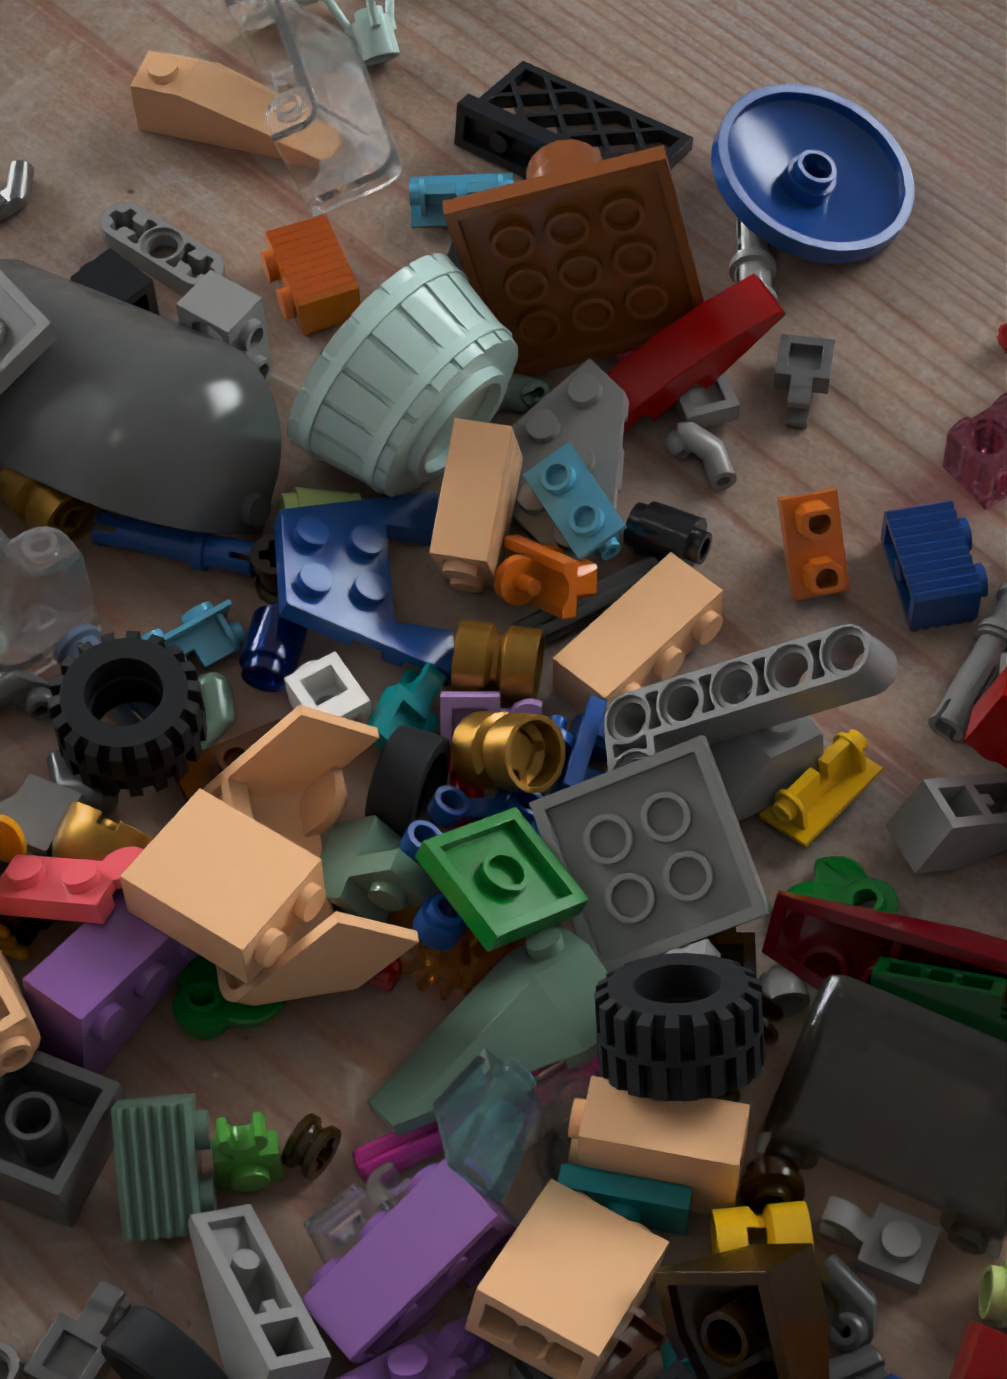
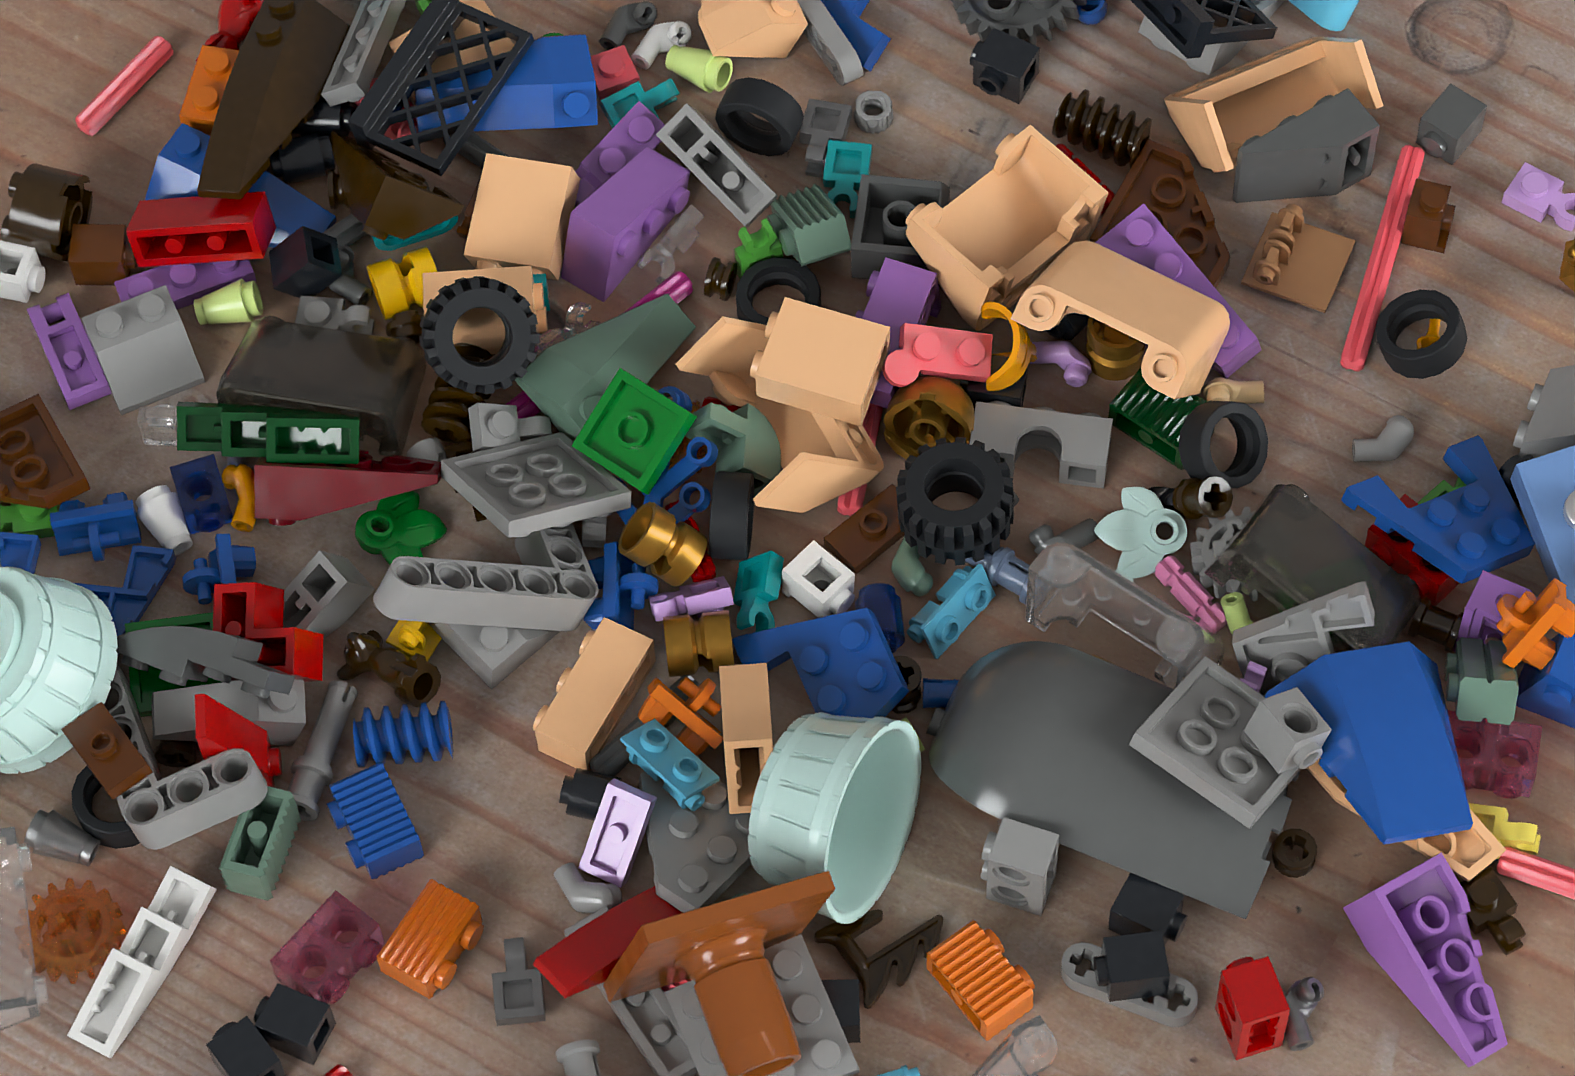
camera: 165 degrees right, 5 degrees up
(55, 169) = (1251, 1006): none -> red brick
(73, 1268) = (843, 170): none -> teal plate
(153, 226) = (1133, 966): none -> black brick
(249, 1048) = (770, 273): none -> black tyre
(488, 1121) = (598, 278): clear light blue slope -> none
(652, 473) = (617, 832): none -> plate
(813, 544) = (472, 801): orange hips -> none
(886, 731) = (409, 676): none -> dark brown animal
(890, 432) = (431, 939): none -> orange brick
(906, 1311) = (305, 263): none -> black brick
(913, 645) = (403, 734): none -> blue piece

